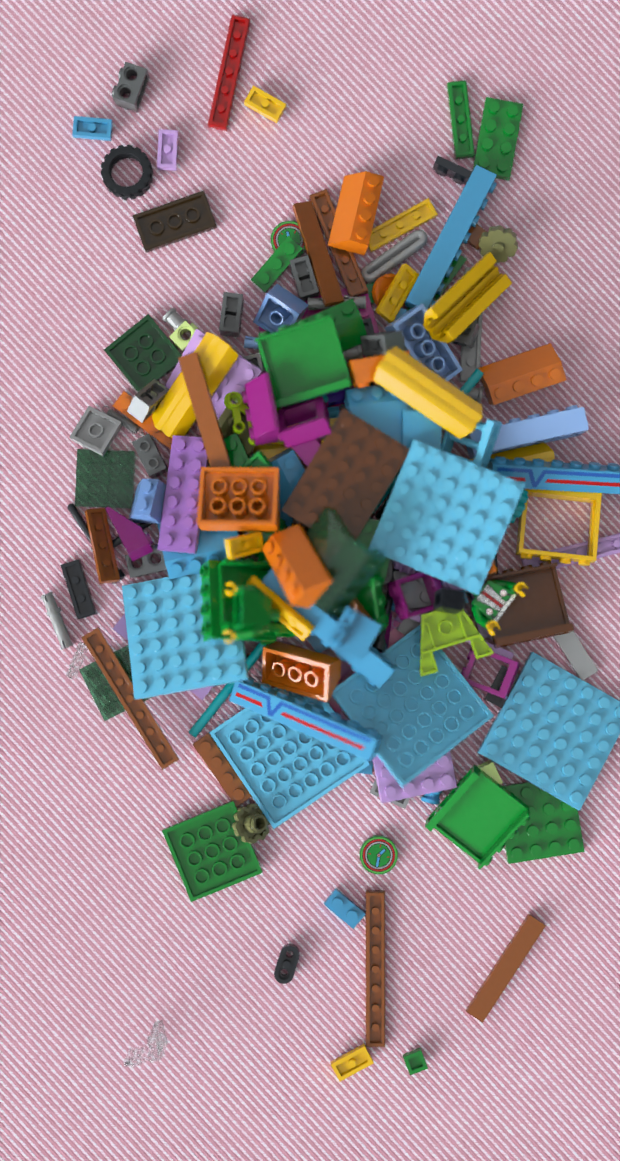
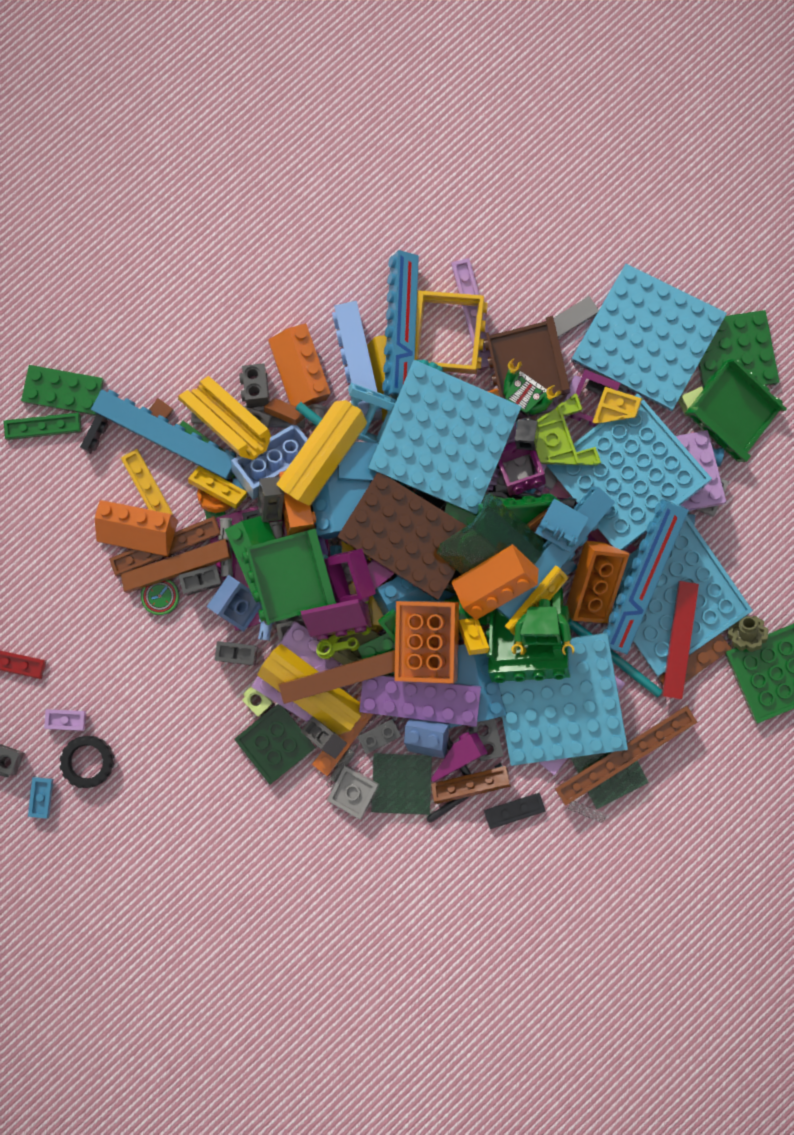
camera: 90 degrees left, 5 degrees down
(56, 620) = (552, 830): light grey pin -> none
(173, 318) = (239, 712): light grey bush -> none
(174, 221) = (138, 713): dark brown tile -> none
(244, 754) = (680, 639): none -> red tile
(265, 104) = (21, 620): yellow plate -> none
(277, 264) = (185, 608): green plate -> none
(378, 854) = (774, 508): tile -> none
(394, 256) = (178, 491): light grey piece -> none
(475, 358) = (283, 411): none -> dark orange tile
(479, 693) = (616, 406): none -> yellow wing
(499, 242) = (168, 387): olive plant -> none
(503, 334) = (256, 385): none -> dark grey brick

